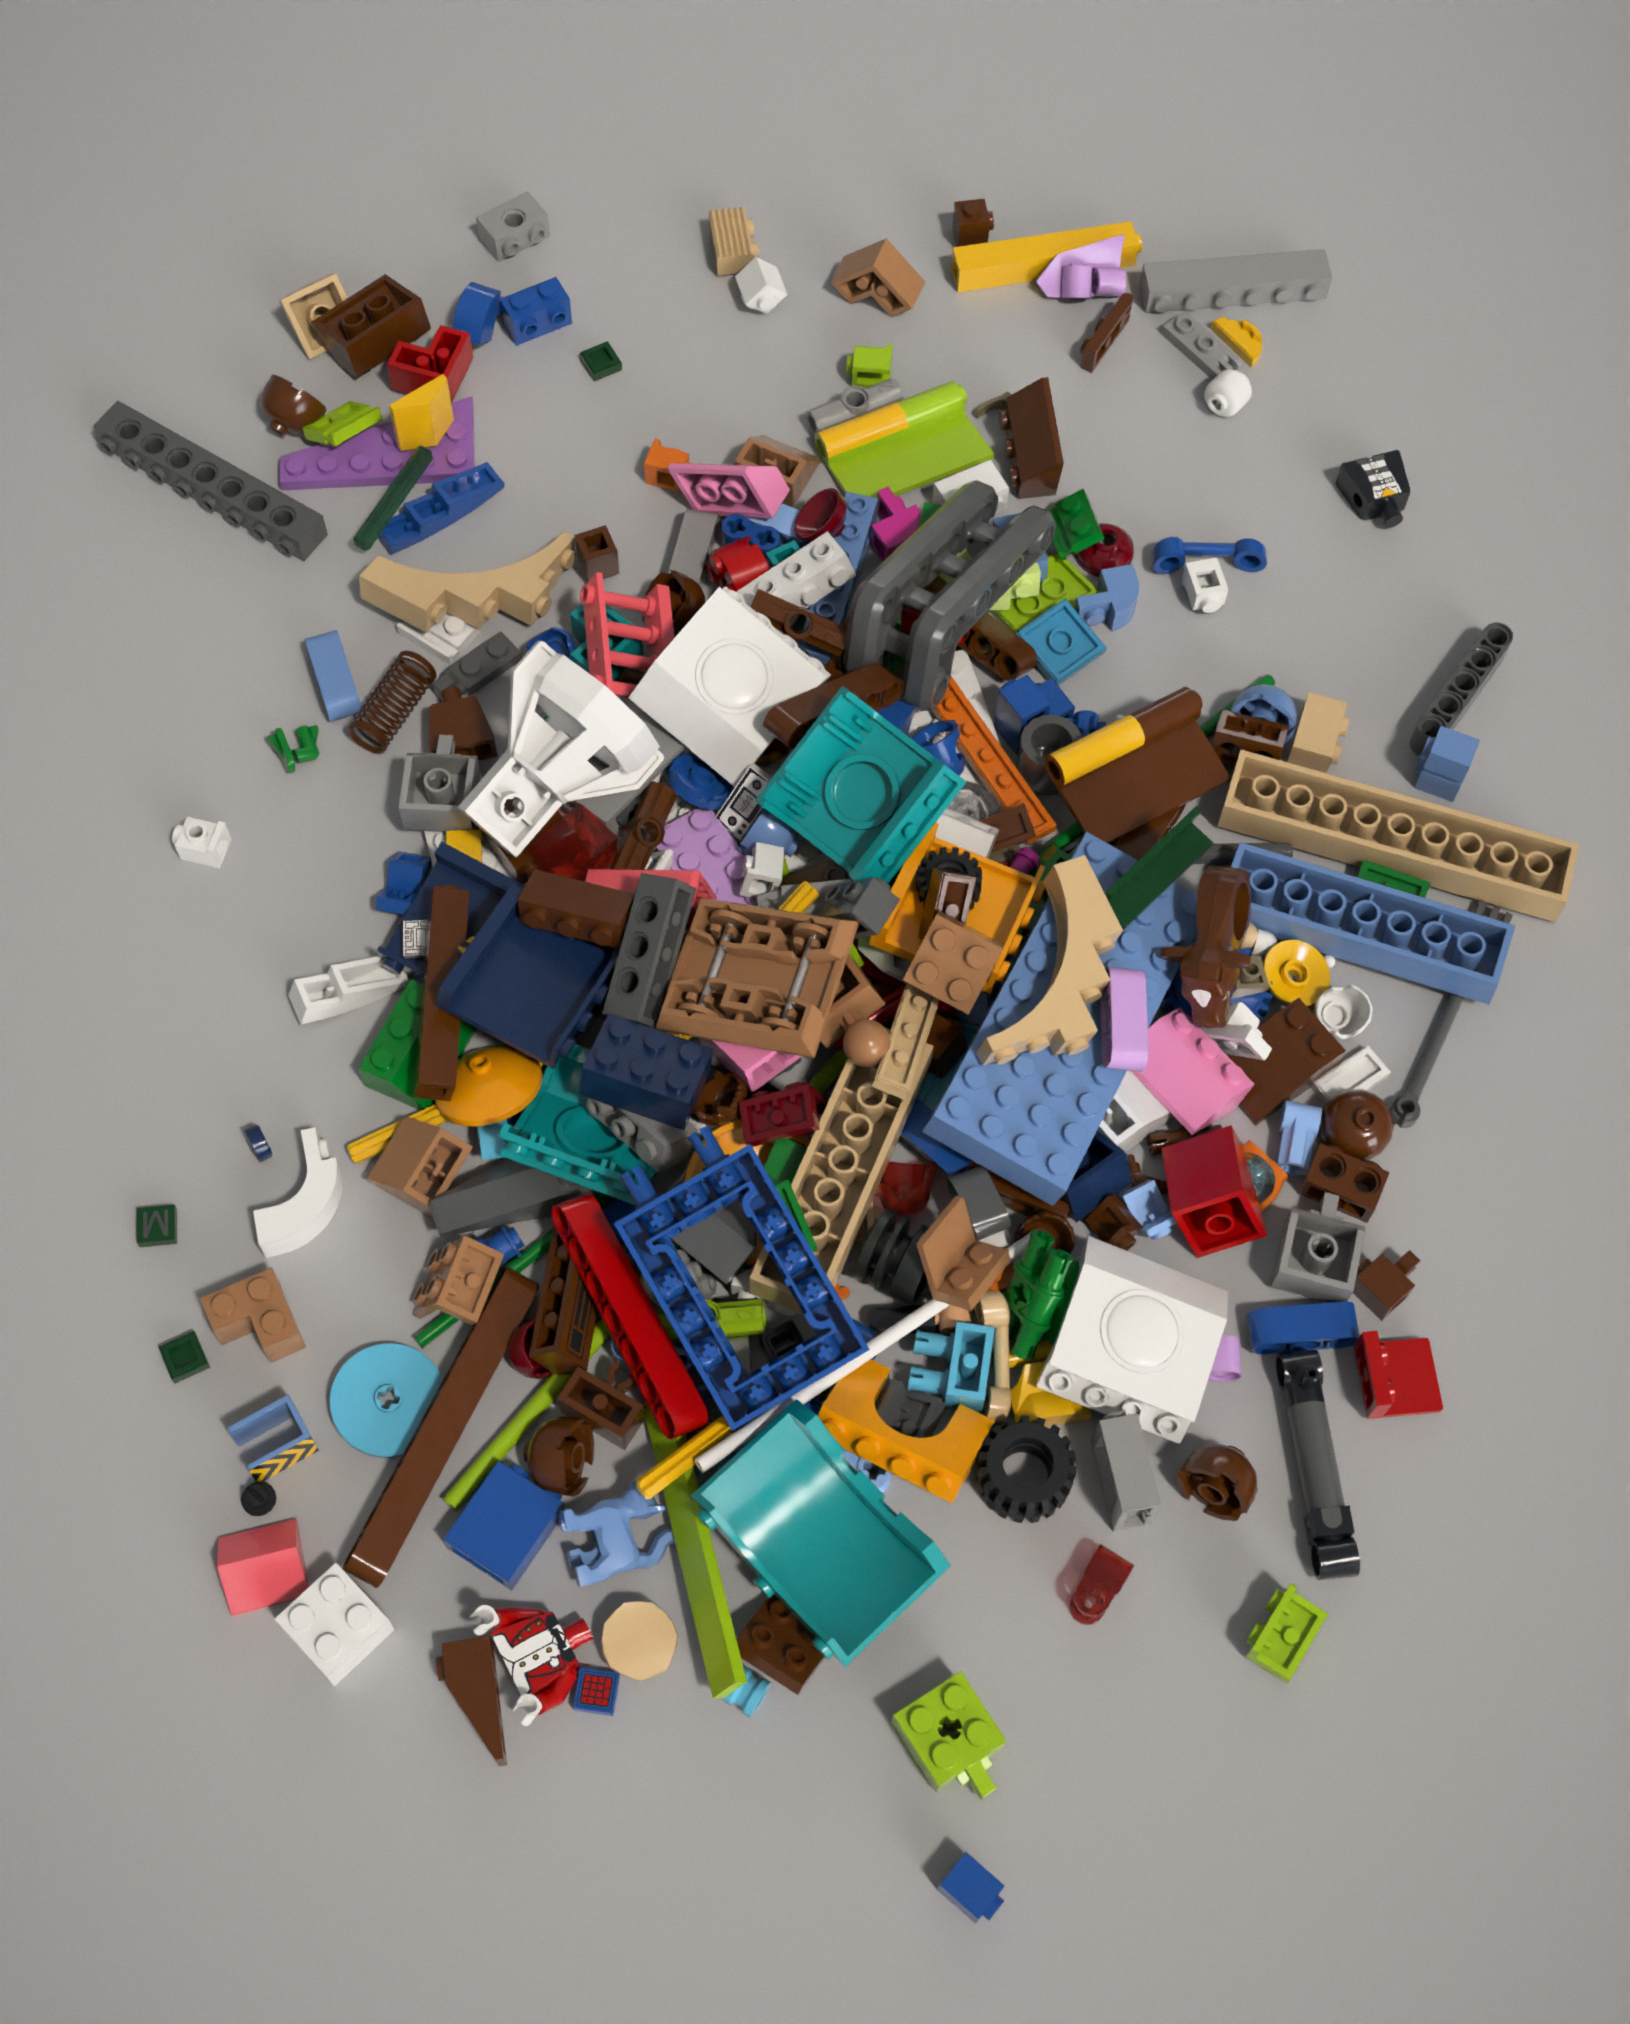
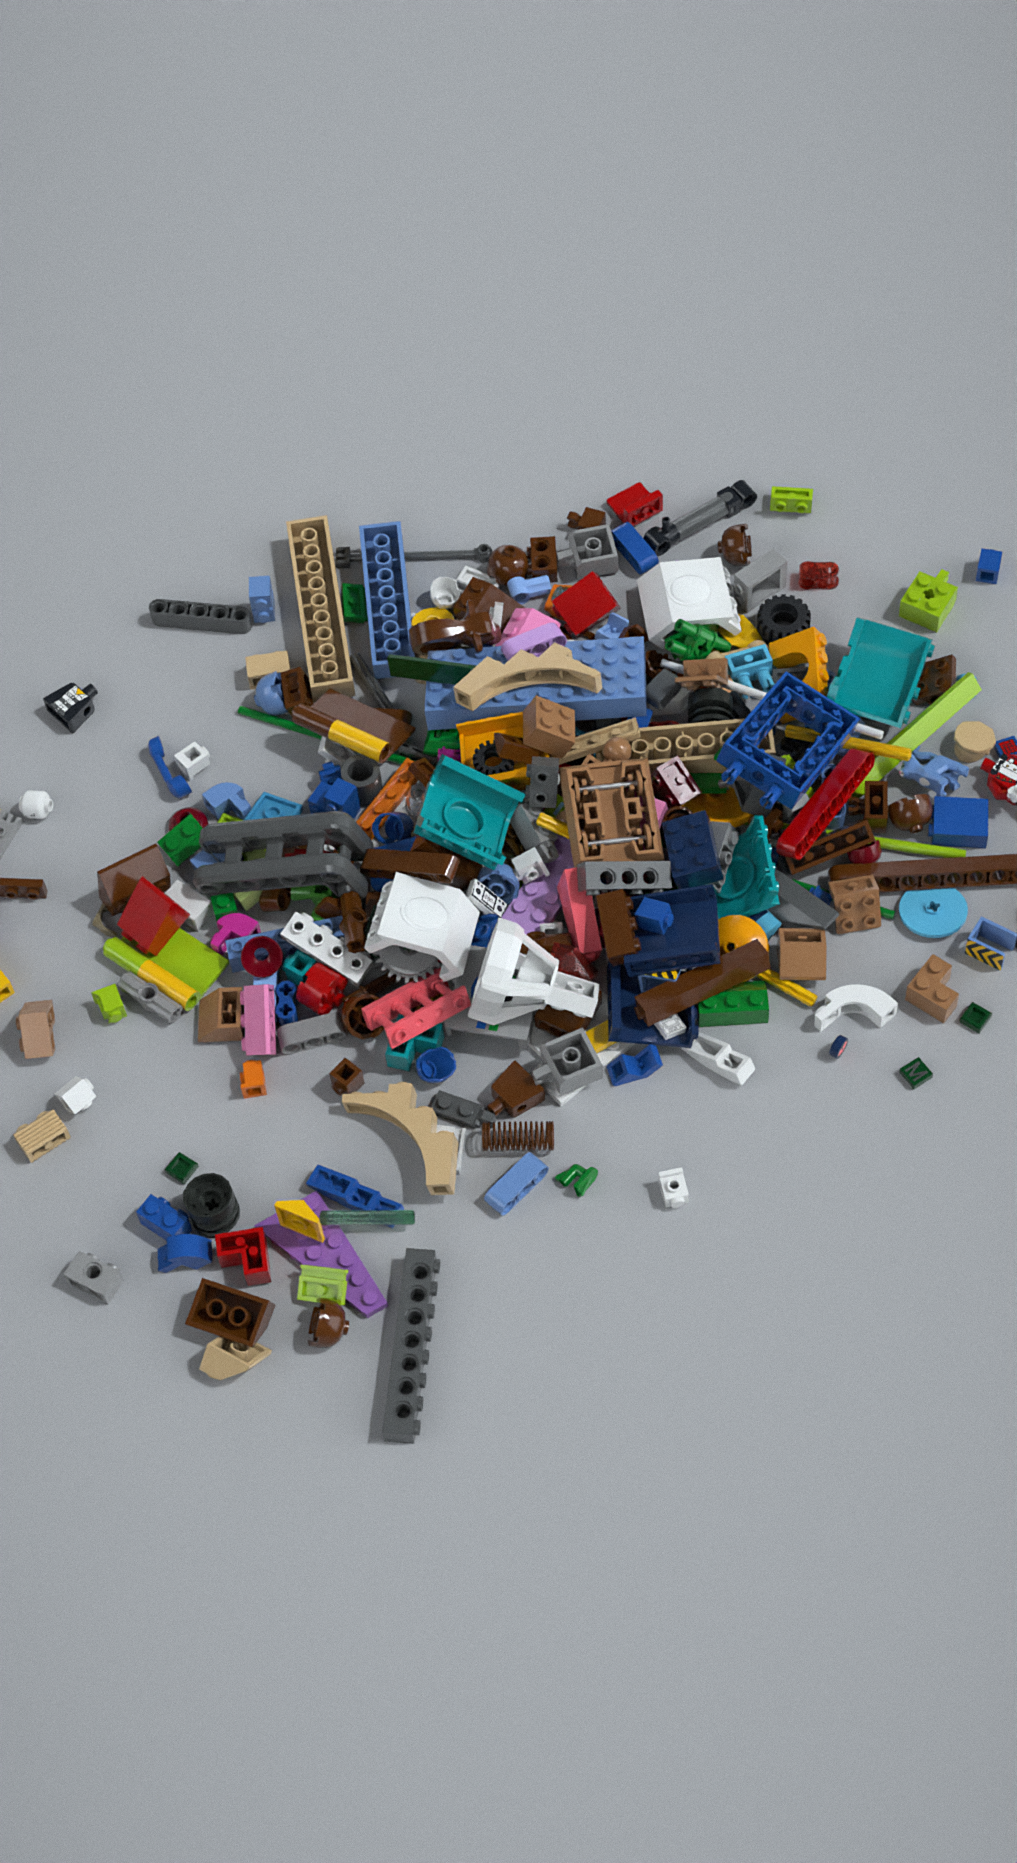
camera: 110 degrees left, 5 degrees down
(517, 353) = (211, 1204): none -> pearl dark grey wheel
(569, 966) = (654, 916): none -> blue brick
(961, 435) = (151, 917): none -> red slope

